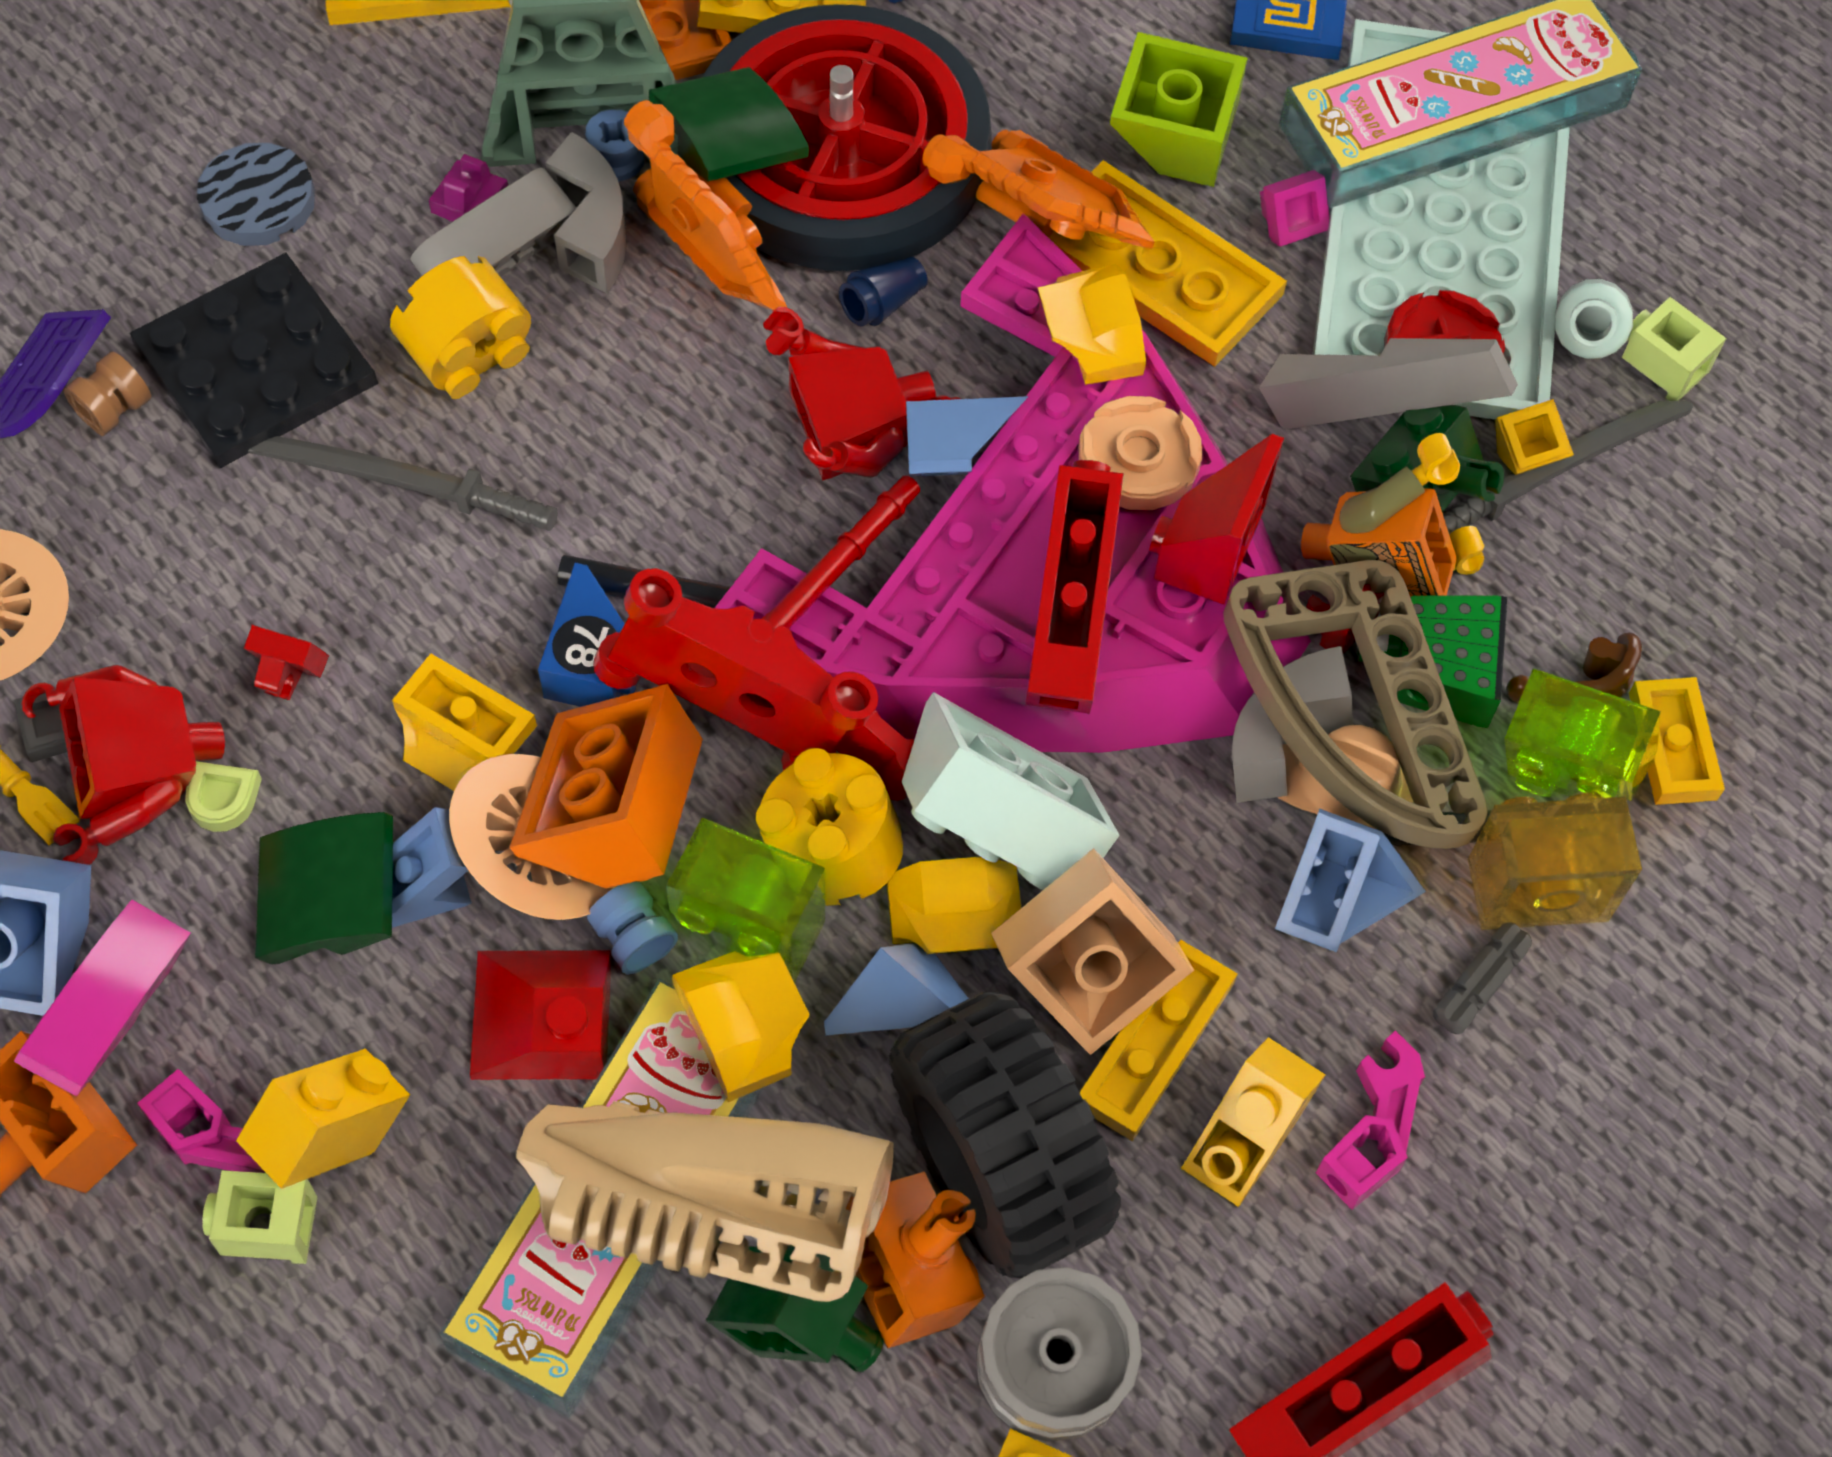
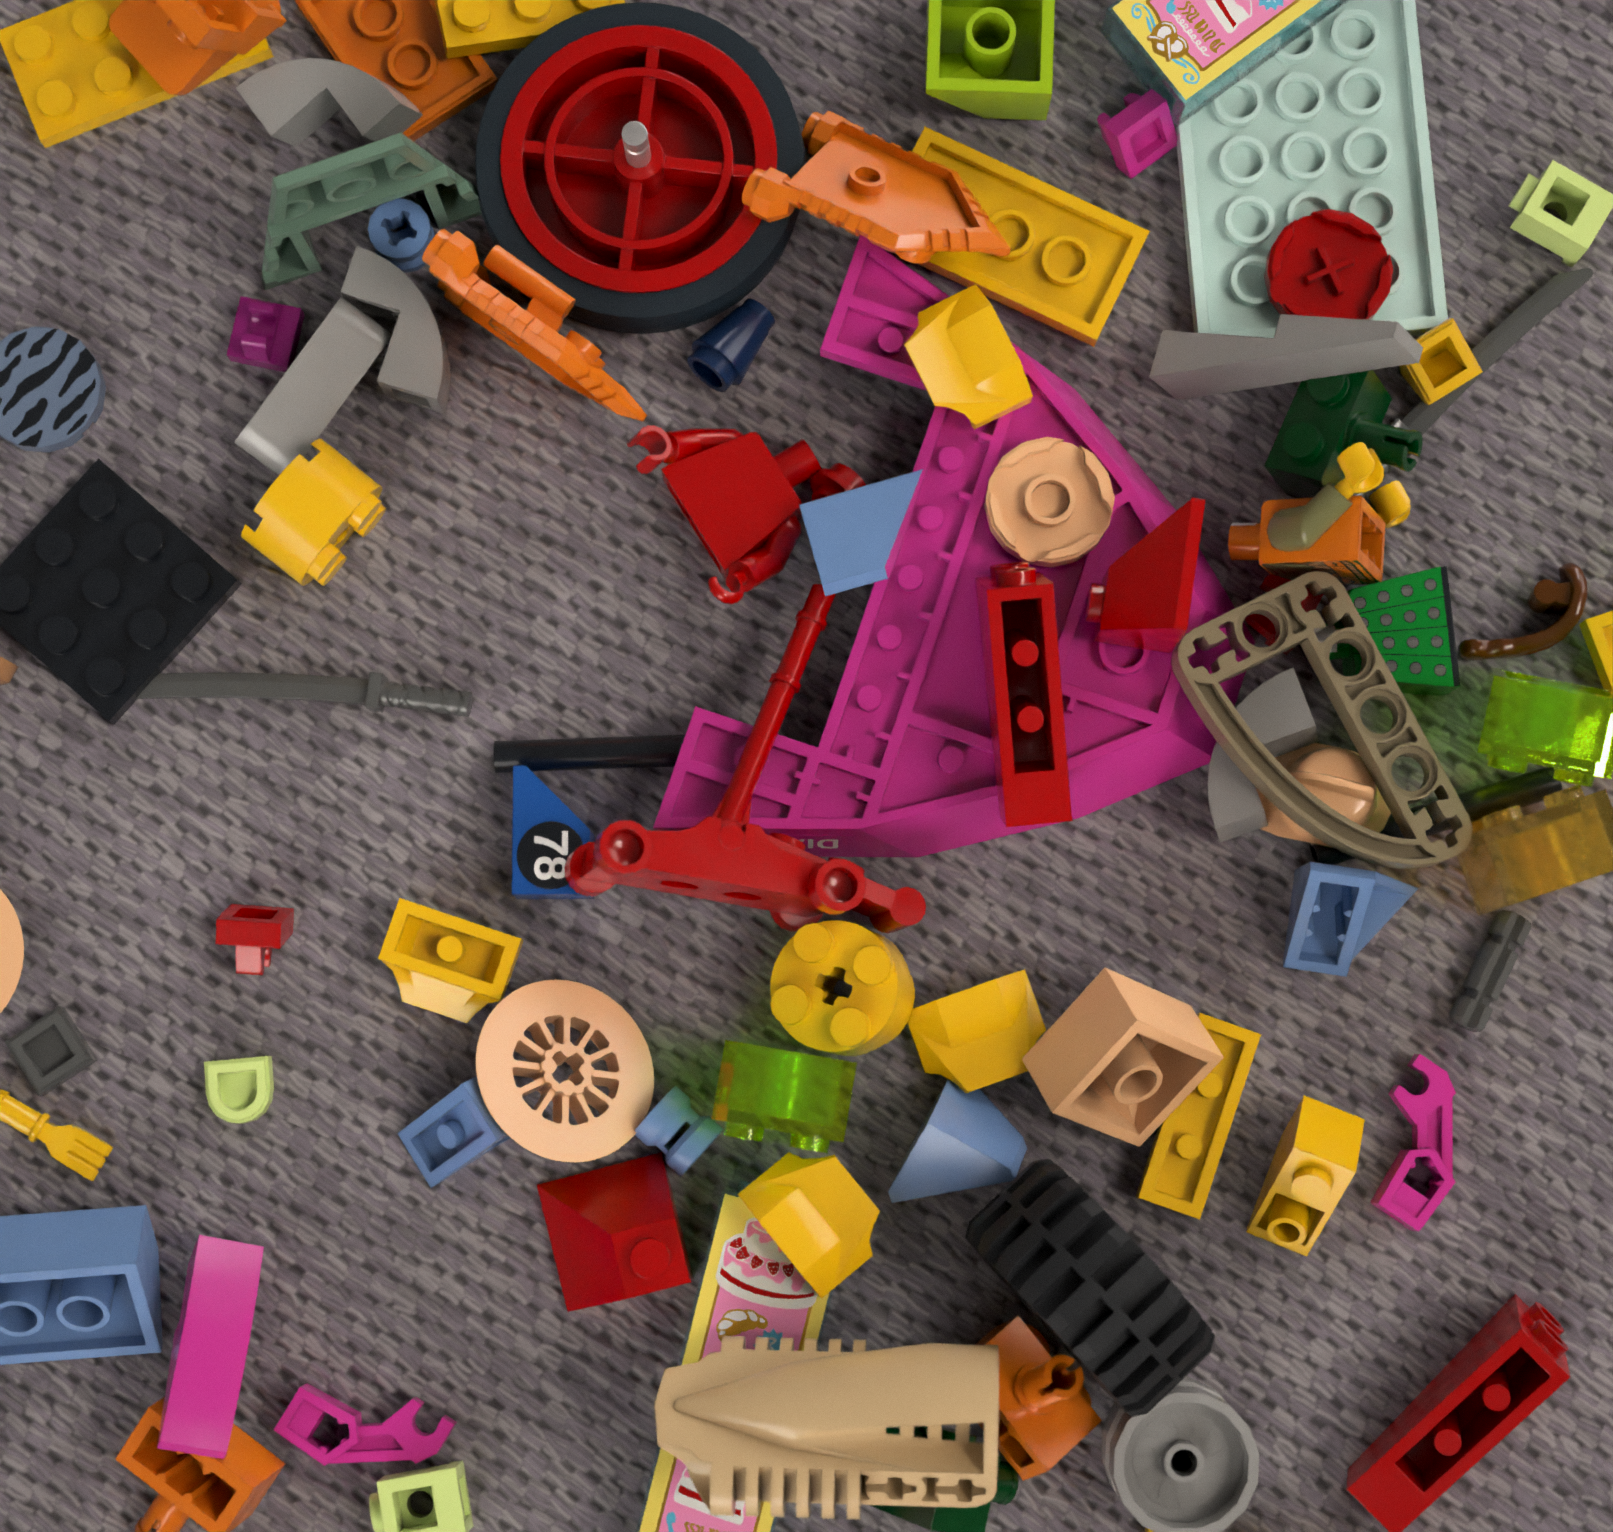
camera: 10 degrees left, 20 degrees up
(125, 751) = (136, 1076): red torso -> none
(322, 1117) = (453, 1411): yellow brick -> none
(325, 887) = (374, 1166): dark green slope -> none
(610, 789) = (620, 1007): orange slope -> none
(731, 124) = (526, 213): dark green slope -> none
(1002, 795) = (1003, 918): light aqua slope -> none
(1593, 319) = (1476, 200): light aqua head -> none

